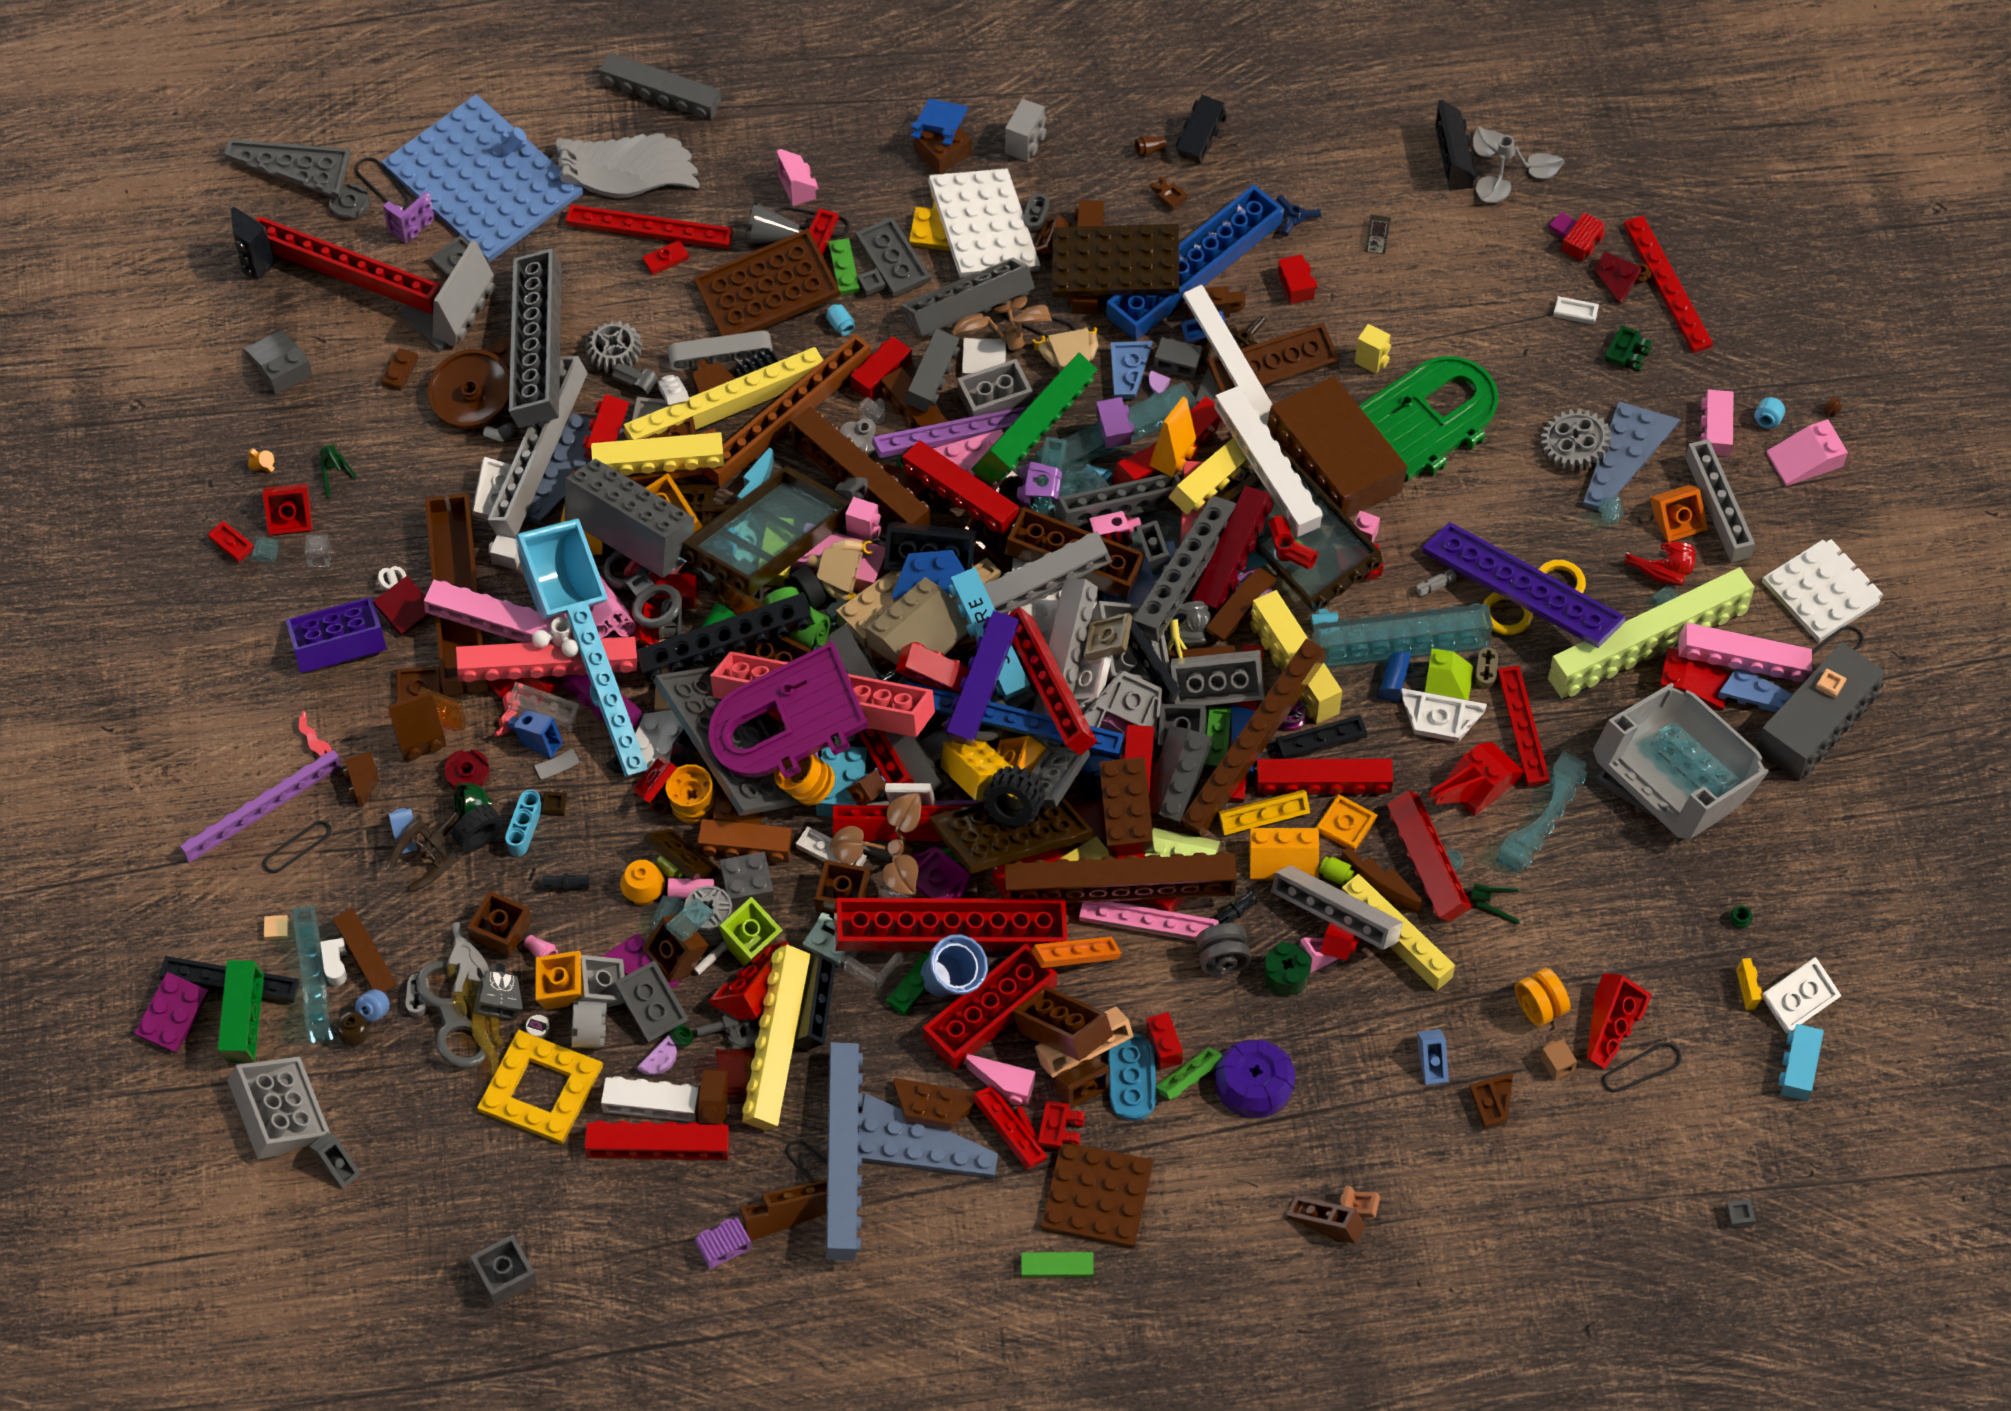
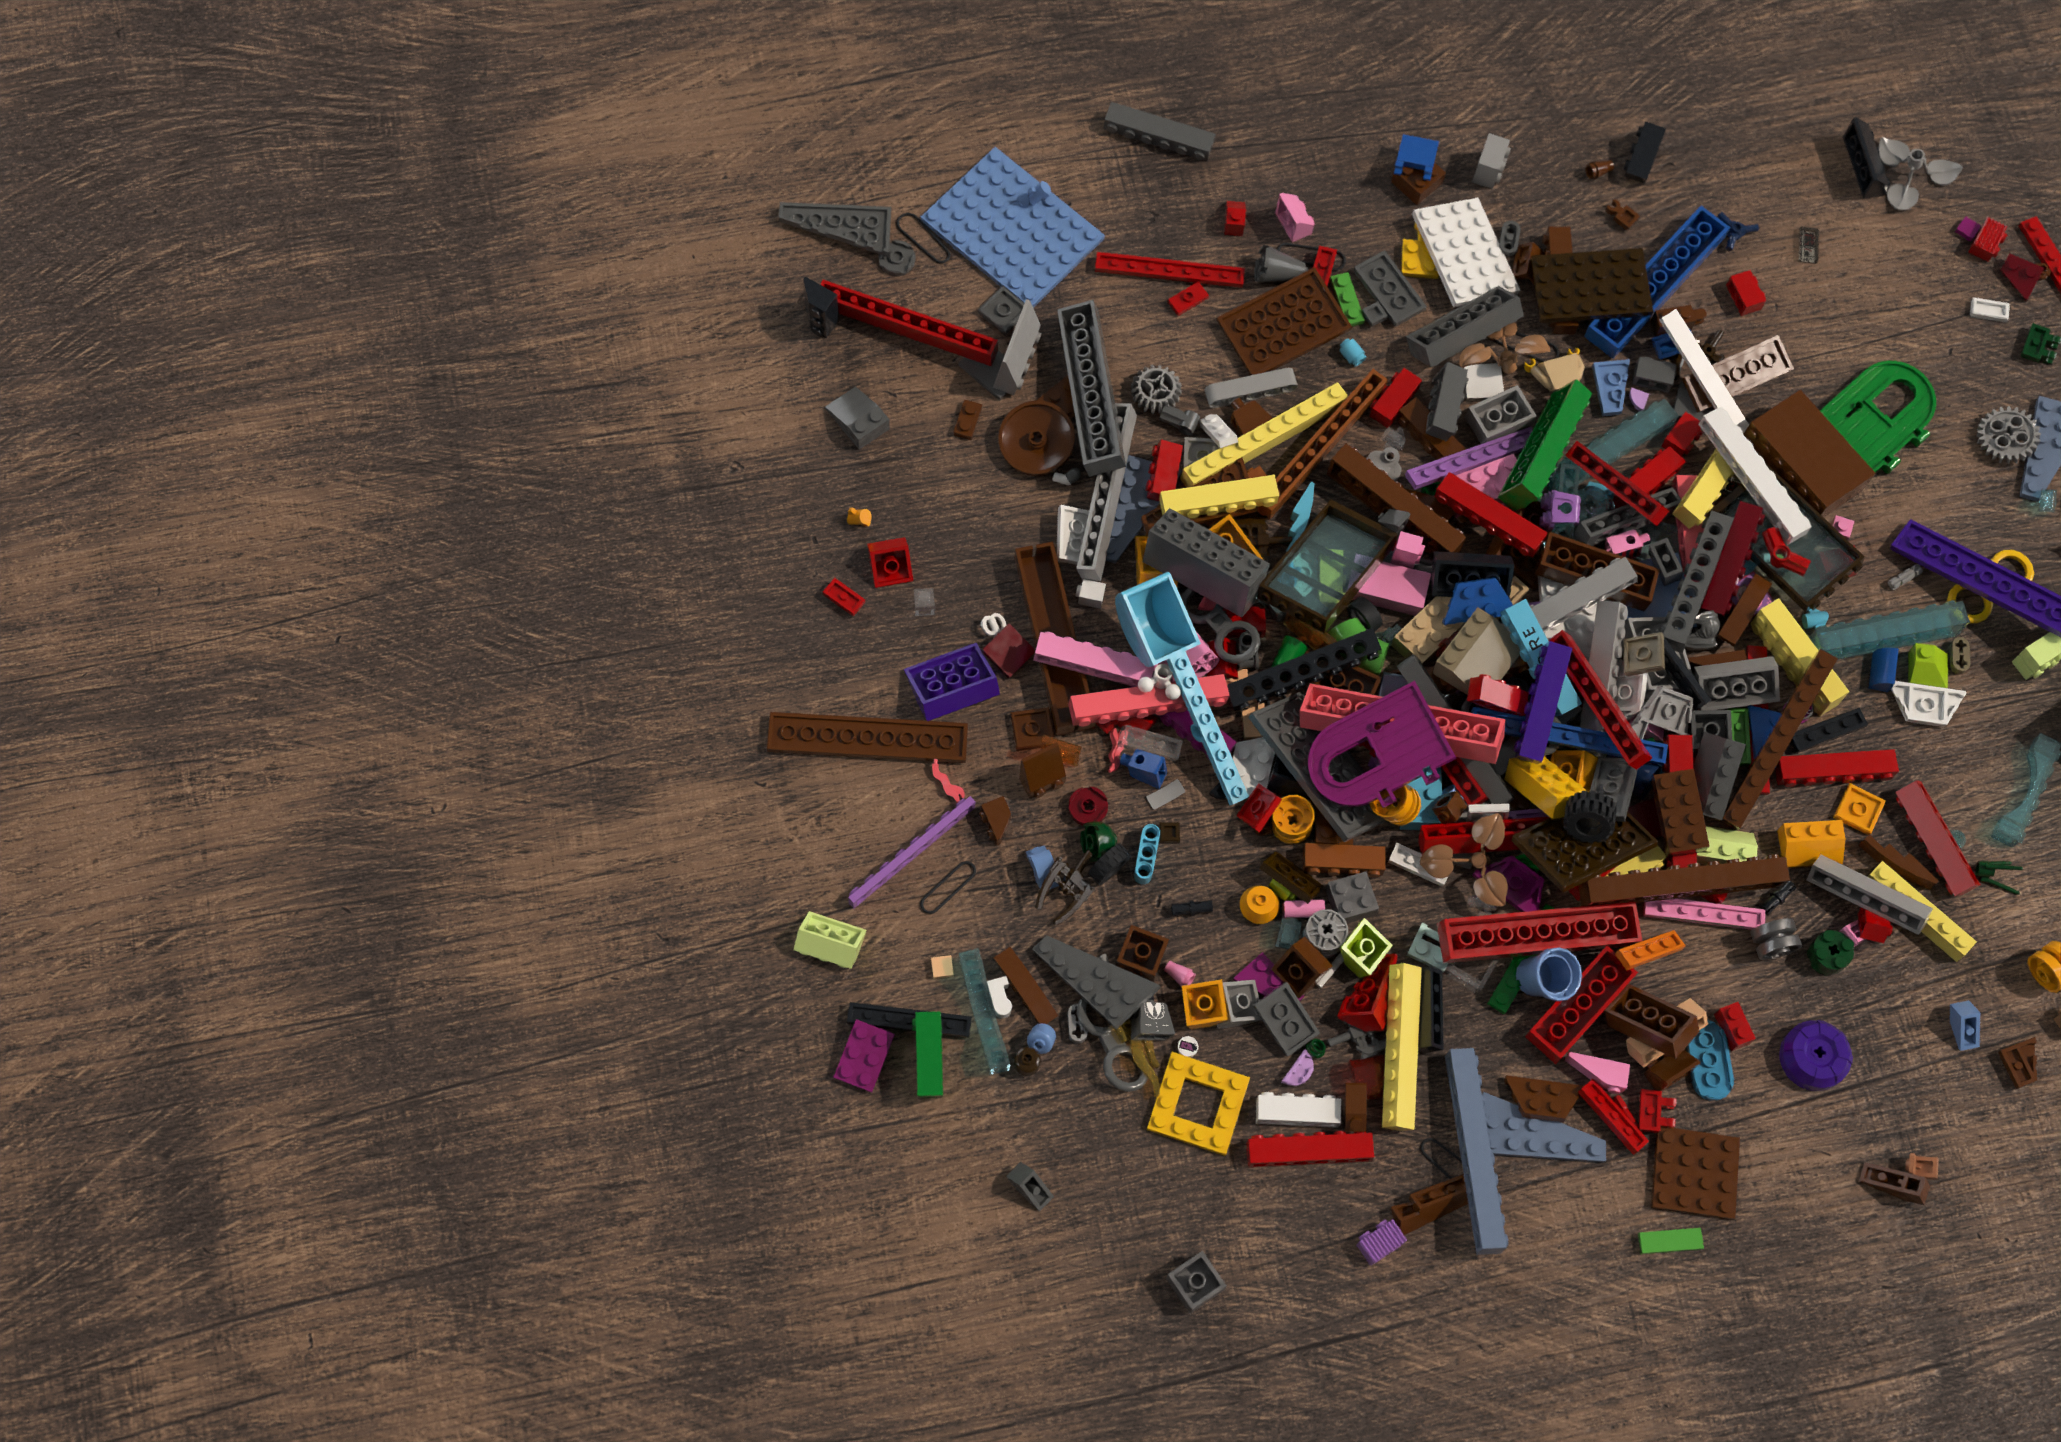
camera: 10 degrees left, 10 degrees up
(153, 891) = (829, 940): none -> yellowish green slope
(232, 686) = (867, 737): none -> reddish brown plate
(265, 549) = (875, 602): clear light blue tile -> none
(277, 1106) = (971, 1139): light grey slope -> none
(331, 458) = (922, 511): dark green plant -> none
(408, 223) = (954, 280): medium lavender bracket -> none
(446, 951) = (1105, 987): none -> dark grey wing
(588, 1024) = (1235, 1045): light grey brick -> none
(626, 165) = (1140, 210): light grey animal -> none
(689, 919) = (1316, 946): clear light blue tile -> none
(730, 178) = (1235, 218): none -> red slope
(755, 363) = (1285, 401): black piece -> none
(839, 567) = (1394, 596): tan torso -> none
(840, 881) = (1436, 900): reddish brown brick -> none
(1106, 460) = (1617, 483): none -> red brick
(1114, 422) = (1613, 443): medium lavender brick -> none
(1175, 440) = (1673, 463): light orange slope -> none
(1175, 637) = (1693, 645): light yellow plant -> none
(1188, 1073) = (1759, 1055): bright green plate -> none
(1264, 812) = (1789, 804): yellow plate -> none
(1336, 870) = (1859, 856): lime brick -> none
(1373, 349) = (1825, 358): light yellow brick -> none
(1478, 778) = (1970, 762): red slope -> none
(1523, 726) = (1999, 709): red plate -> none

